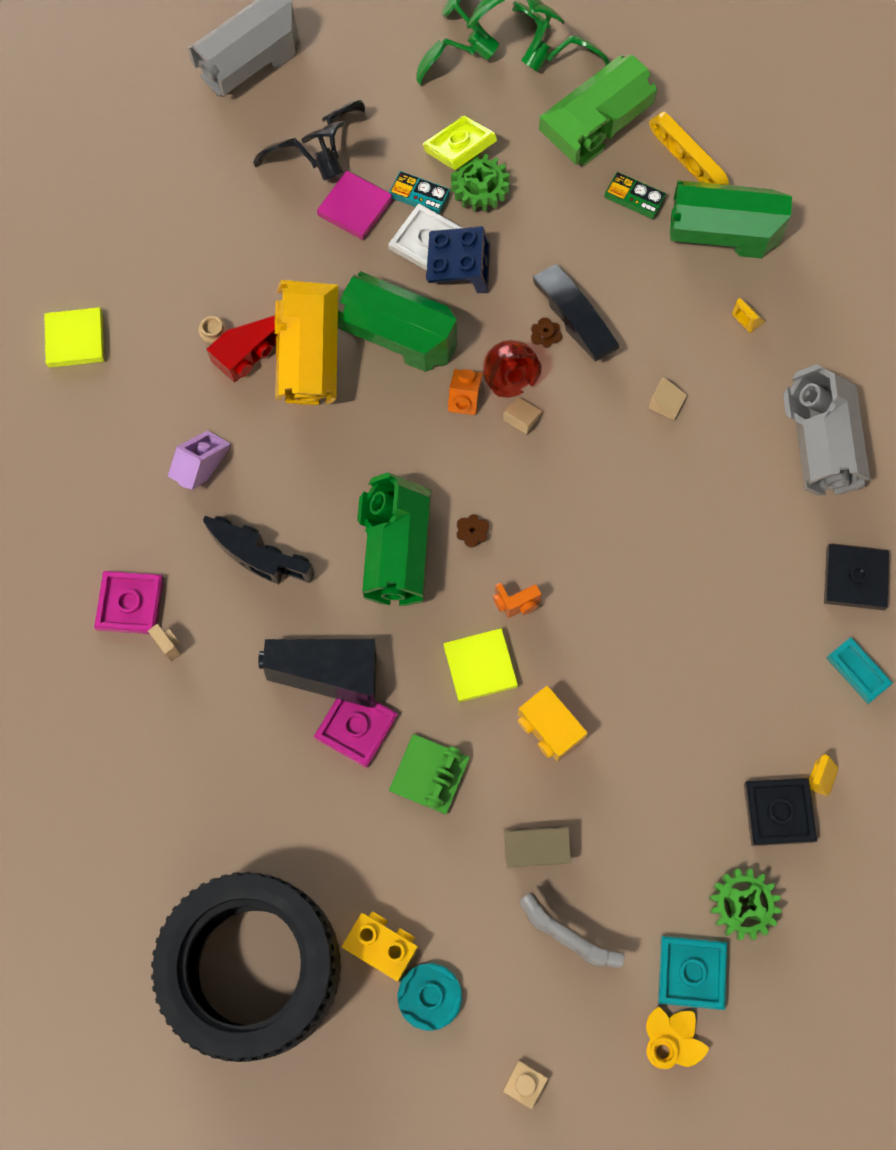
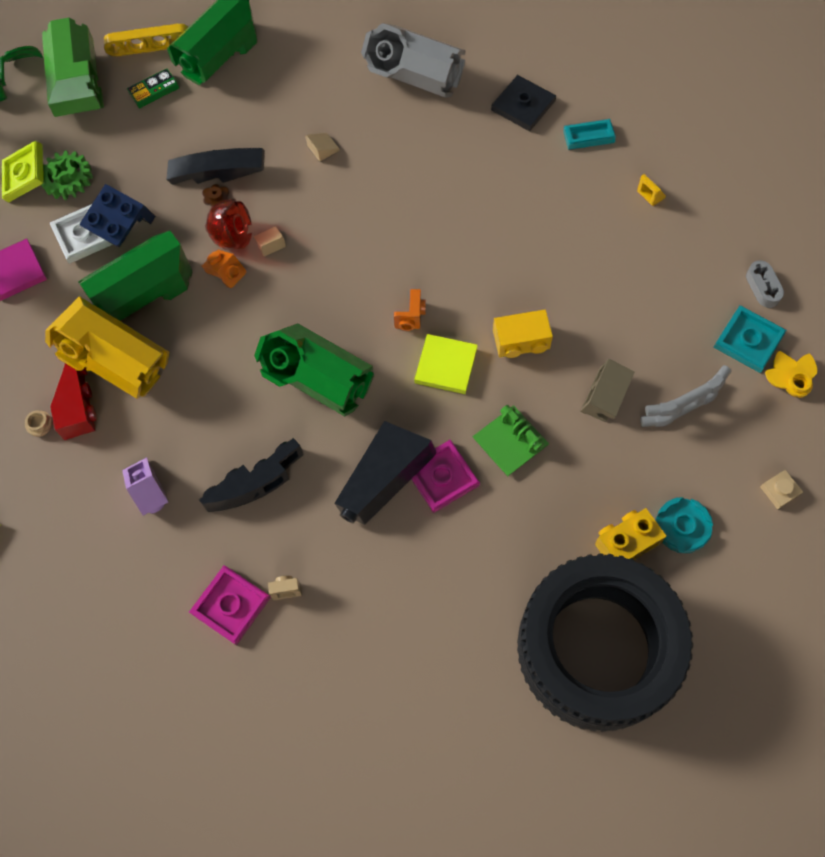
camera: 60 degrees left, 5 degrees down
(416, 190) = (38, 221): tile -> none
(480, 527) = (335, 312): reddish brown plant -> none
(746, 315) = (294, 67): yellow slope -> none
(757, 912) = (719, 279): bright green gear -> none
(767, 953) = (761, 285): none -> light grey beam
(780, 812) = (663, 227): black plate -> none

